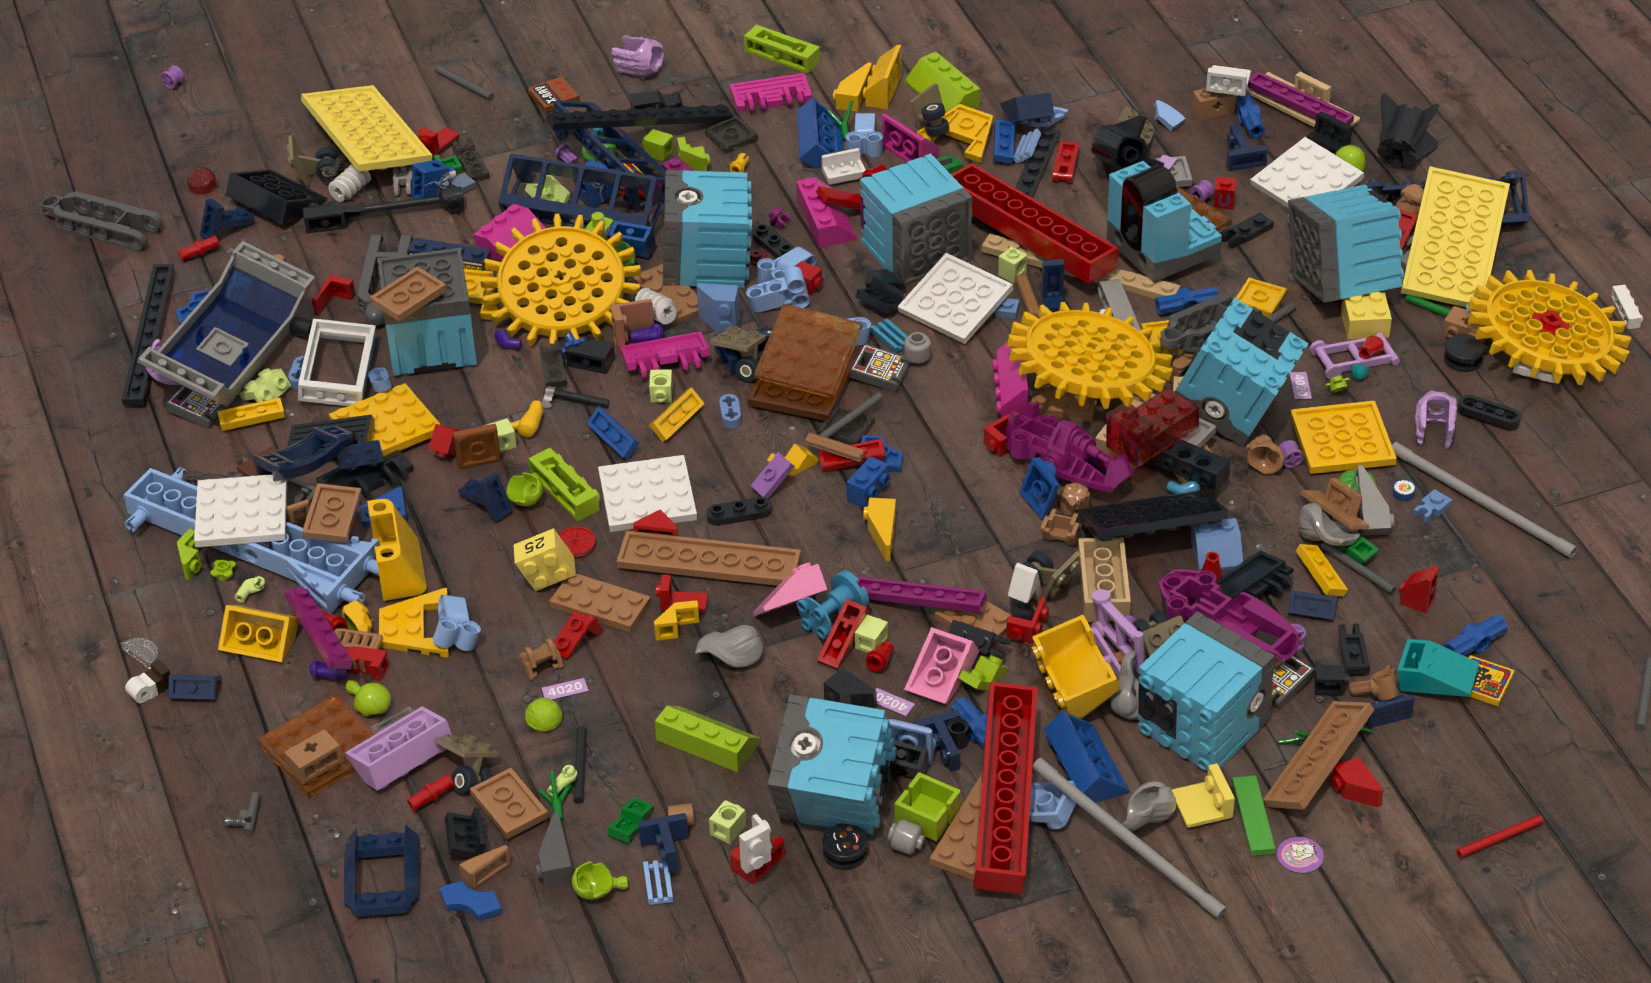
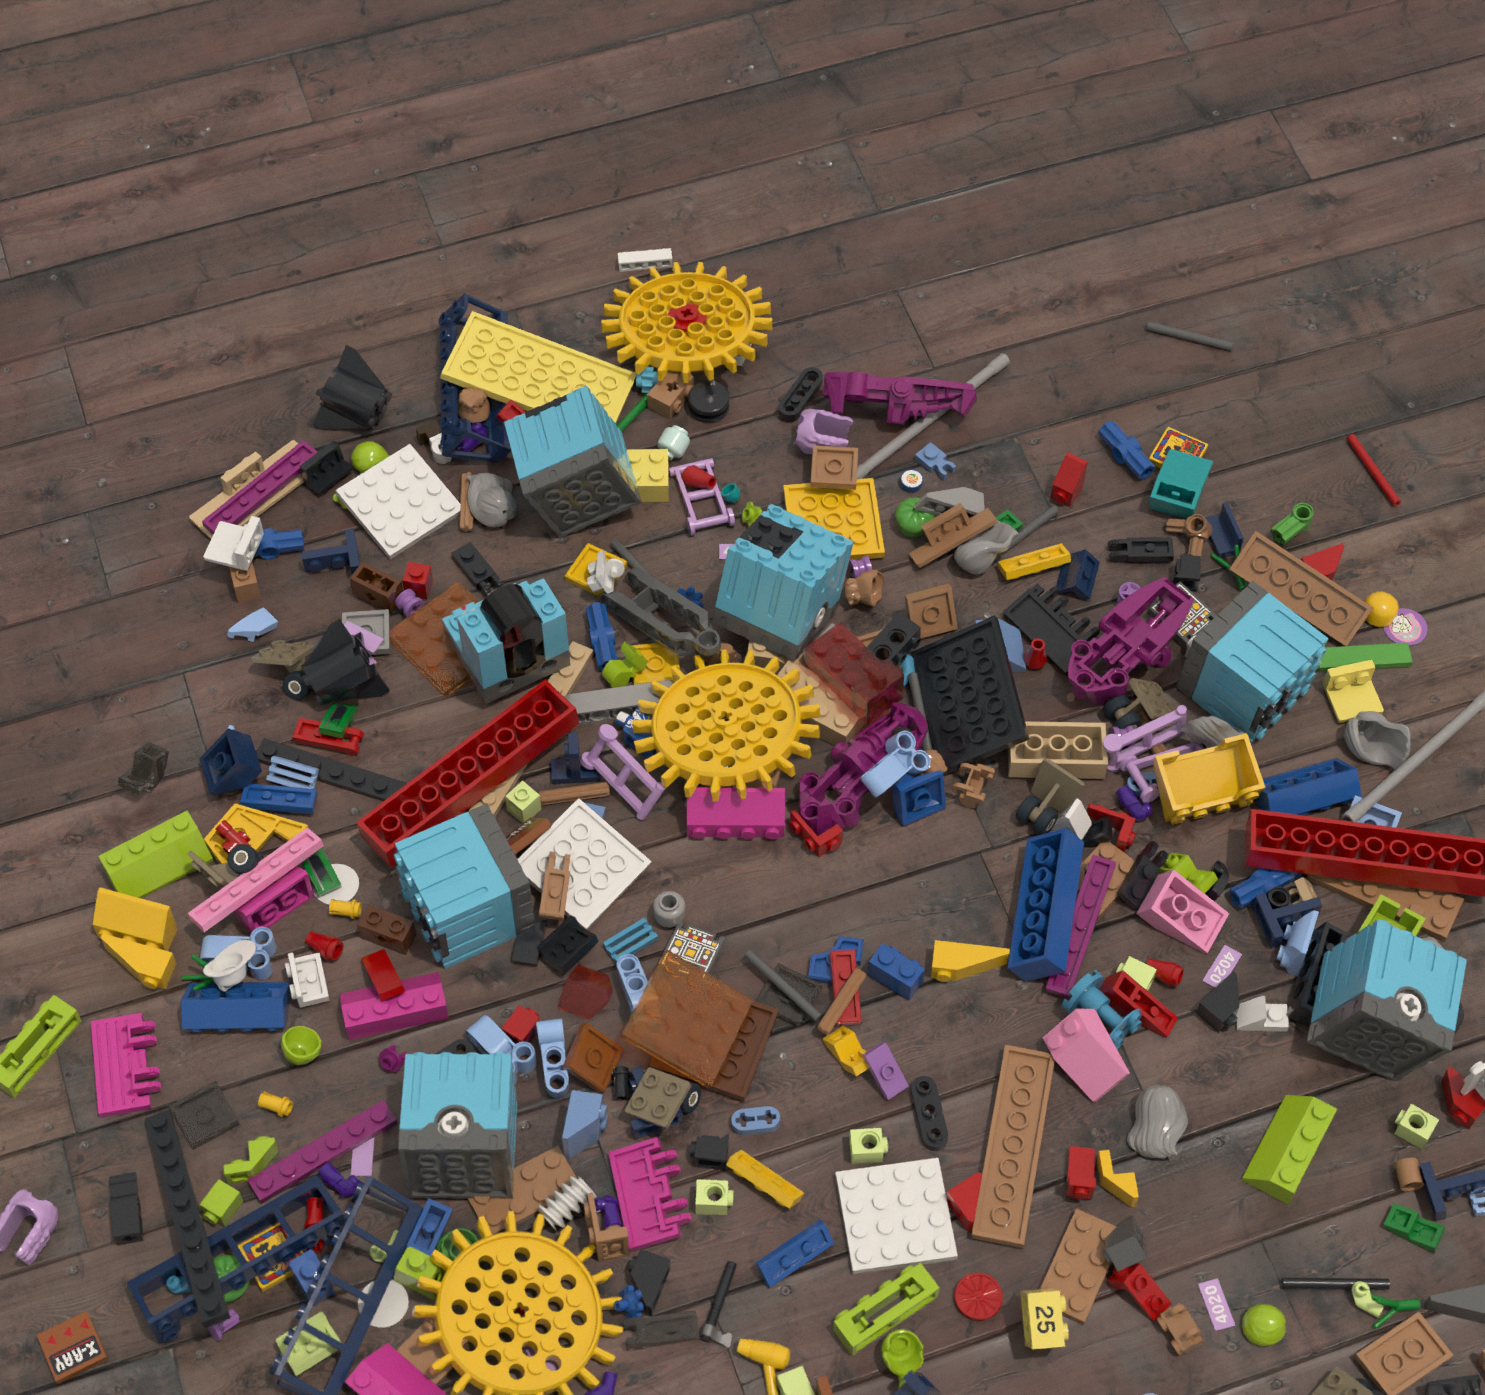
camera: 90 degrees left, 15 degrees up
(613, 618) = (1125, 1244): none -> dark grey slope
(701, 382) = (710, 1152): none -> black window
(706, 470) = (859, 1153): none -> yellowish green brick
(770, 307) = (592, 1057): none -> dark orange tile
(785, 167) = (300, 1045): none -> lime piece
(844, 122) = (230, 964): none -> white piece
(846, 308) = (585, 992): none -> clear red slope
(918, 122) = (256, 880): none -> bright pink plate
(928, 276) = (555, 889): none -> medium nougat hinge
(934, 565) = (1046, 905): none -> blue brick
(956, 114) = (232, 837): none -> red plate
(970, 754) = (1304, 890): none -> tan tile
(972, 692) = (1223, 876): none -> black slope
(976, 261) = (527, 833): none -> dark orange tile
(1018, 74) = (147, 769): none -> clear smoke brick
(1056, 296) = (591, 761): none -> lavender piece
(1059, 453) = (896, 763): none -> light blue piece
(1088, 166) = (338, 719): none -> green slope
(1154, 310) = (618, 672): none -> lime leg
(1167, 490) = (918, 703): none -> dark grey bar
(1212, 165) = (375, 586): none -> reddish brown brick
(1244, 493) = (932, 610): none -> medium nougat tile
(1246, 288) = (604, 572): none -> white hips
(1315, 828) = (1384, 609): none -> yellow hair
(1394, 423) = (834, 467): none -> medium nougat tile
(1408, 331) = (675, 440): none -> light aqua head
(1413, 764) = (1293, 524): none -> bright green piece
(1488, 461) = (903, 395): none -> magenta piece

